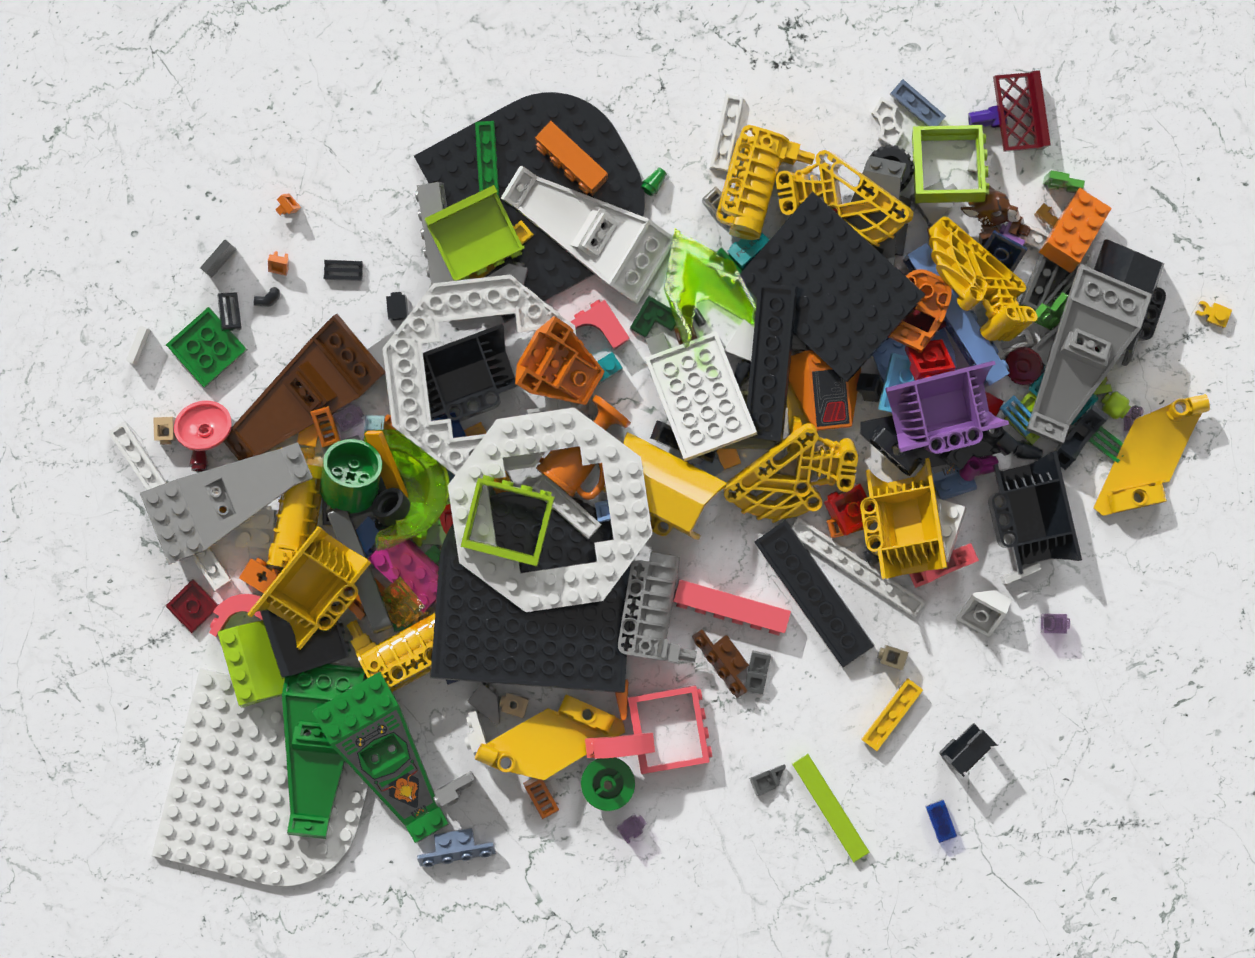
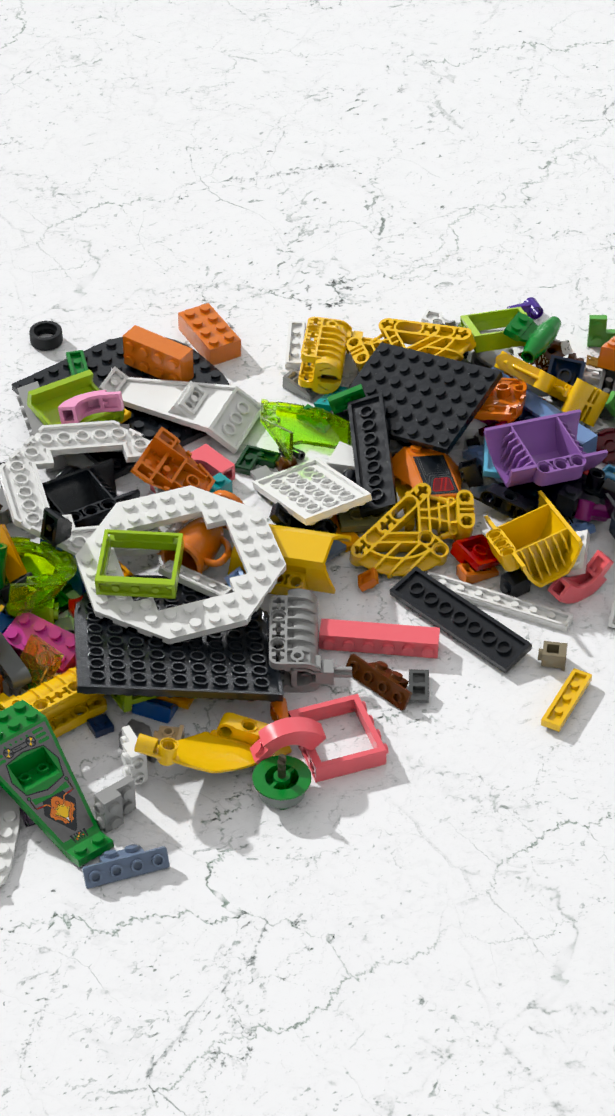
camera: 10 degrees left, 45 degrees down
(433, 451) = (55, 527): none -> black slope
(458, 92) = (47, 343): none -> black tyre
(483, 242) = (89, 403): none -> bright pink arch
(533, 782) = (207, 796): orange slope -> none
(631, 827) = (314, 820): clear purple brick -> none
(634, 108) = (209, 334): none -> orange brick
(654, 181) = (236, 376): green cone -> none
(736, 522) = (368, 579): none -> orange plate
(767, 273) = (339, 401): none -> green plate
(767, 780) = (452, 769): dark grey slope -> none
(830, 807) = (526, 782): lime tile -> none
(917, 104) = (455, 307): sand blue plate -> none
(979, 208) = (536, 337): none -> green plate
(1037, 111) = (562, 296): dark red fence -> none

